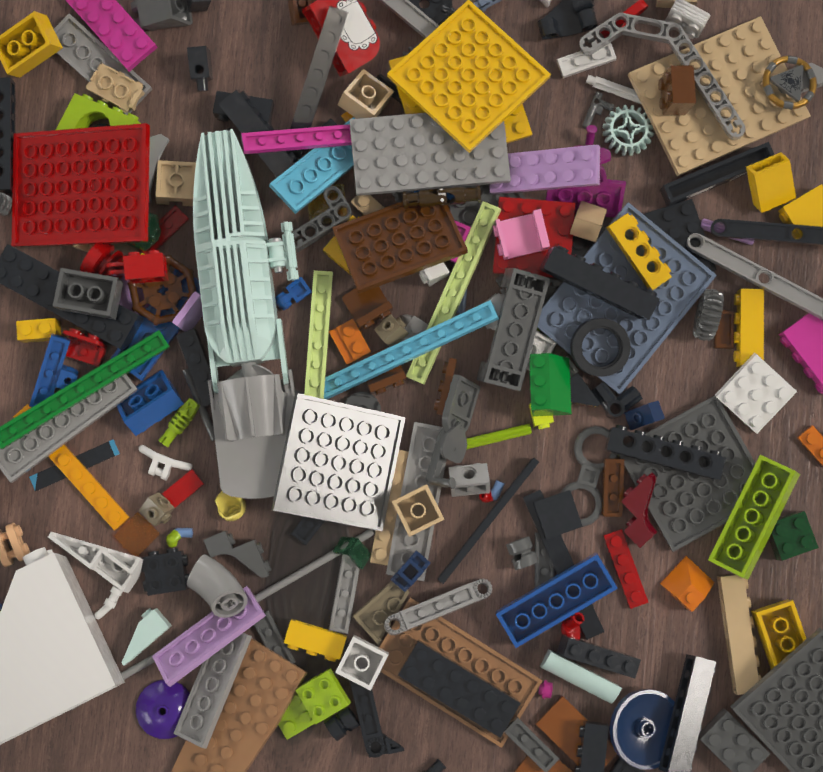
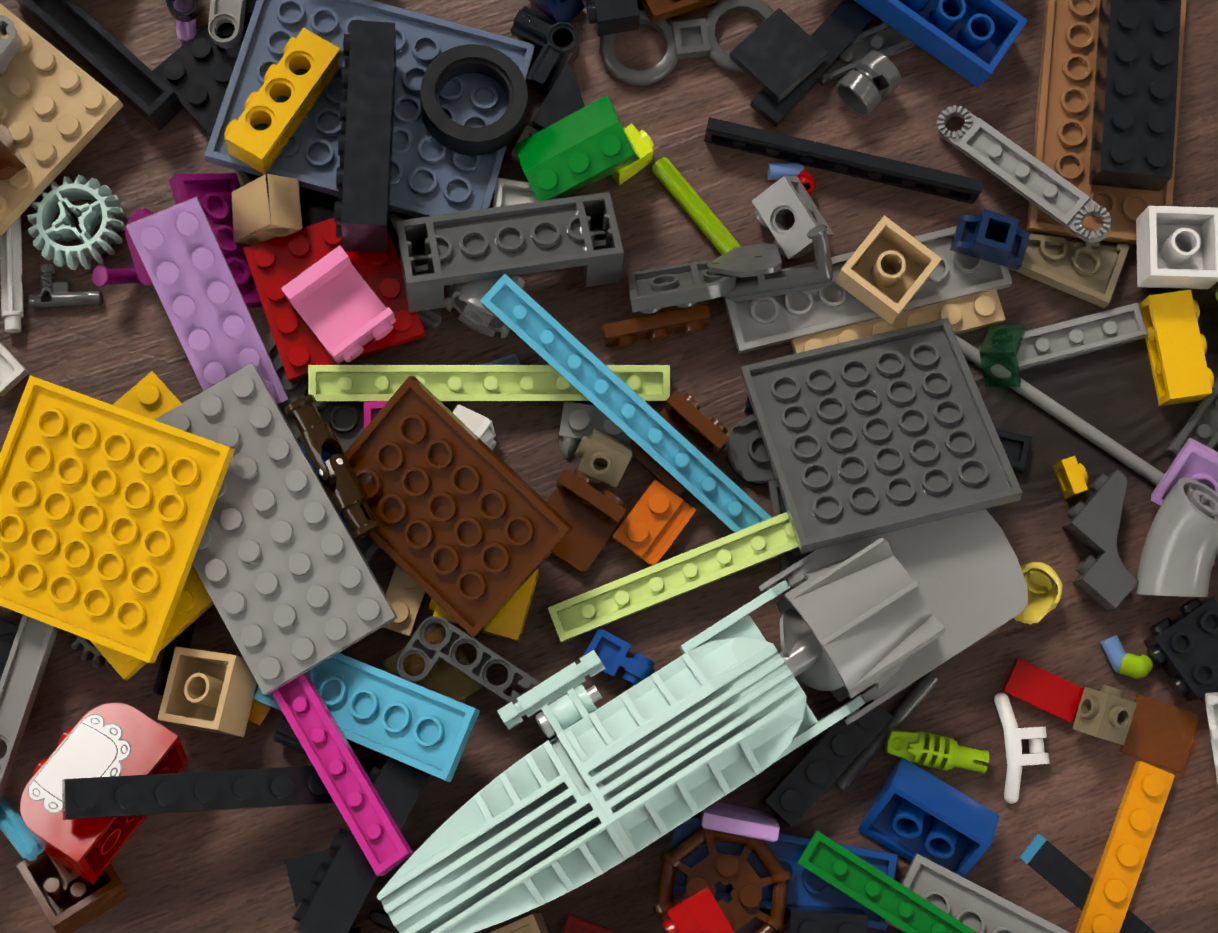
camera: 120 degrees left, 5 degrees down
(276, 554) = (1071, 477): none -> yellow plate

